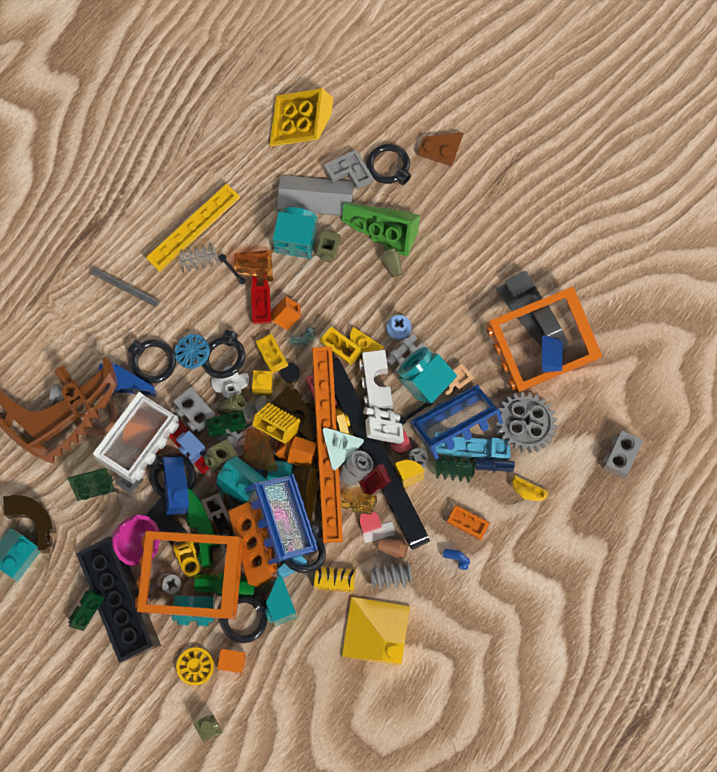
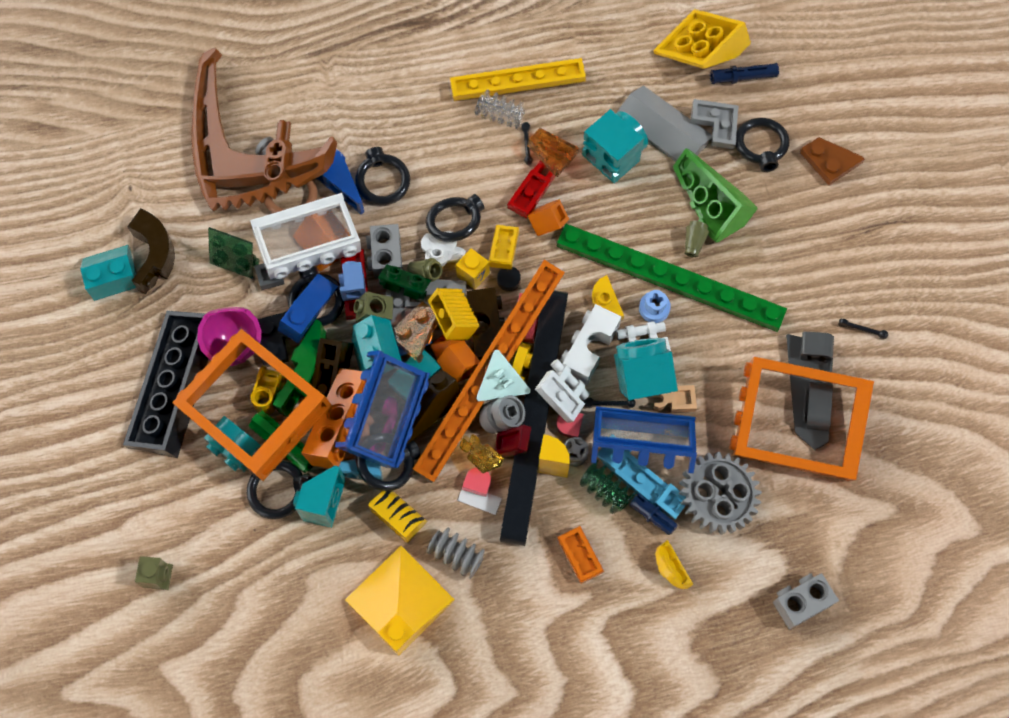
camera: 35 degrees right, 5 degrees down
(82, 615) = (131, 370): dark green hinge -> none
(125, 287) = (410, 94): flat silver bar -> none
(164, 581) = (228, 395): light grey wheel -> none
(192, 351) = (427, 194): dark azure wheel -> none
(195, 666) = (192, 502): yellow wheel -> none
(231, 661) = (230, 523): orange panel -> none
(305, 338) = (549, 254): clear light blue arm -> none
(328, 240) = (644, 175): olive brick -> none
(338, 126) = (737, 74): none -> dark blue pin
(341, 346) = (578, 284): yellow brick -> none
(394, 300) = (672, 277): none -> green plate
(395, 548) = (483, 527): nougat cone -> none
(457, 555) = (546, 592): blue arm -> none
(551, 354) = (799, 439): blue slope -> none
(554, 247) = (883, 334): none -> black hinge

